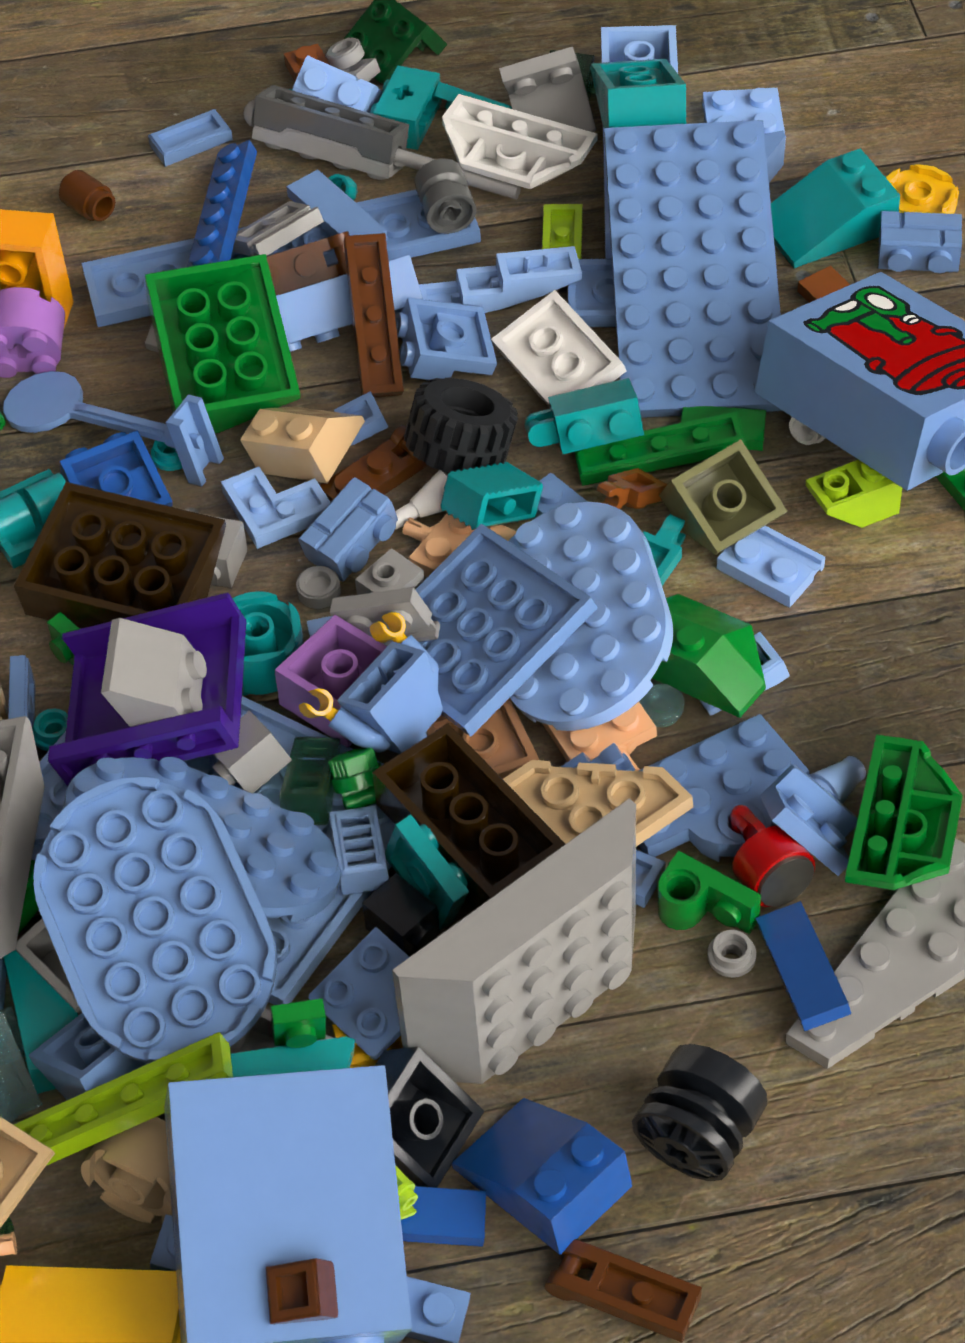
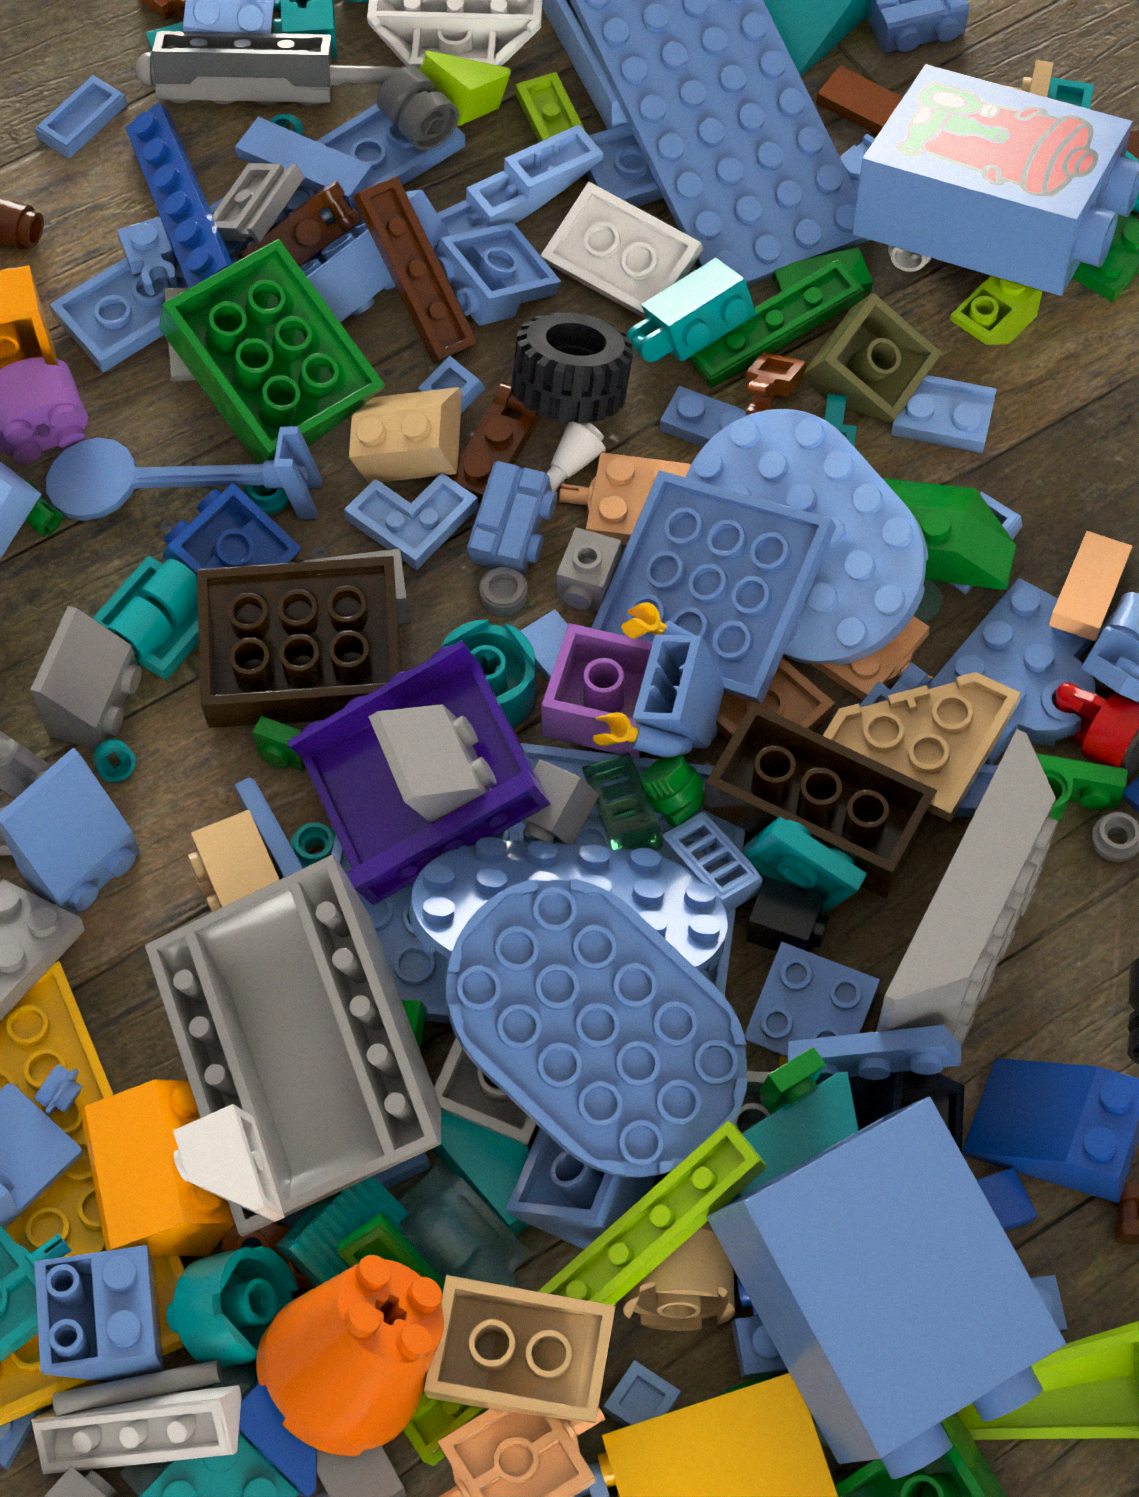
camera: 25 degrees left, 10 degrees up
(63, 1249) = (640, 1396): none -> light blue plate
(174, 243) = (149, 252): none -> medium blue plate
(302, 1291) = (958, 1355): reddish brown slope -> none
(369, 608) = (608, 606): light grey plate -> none
(397, 1037) = (882, 1052): none -> medium blue plate
(491, 495) = (641, 433): teal brick -> none
(499, 193) = (469, 84): none -> lime slope
(816, 736) = (1090, 586): none -> light nougat tile

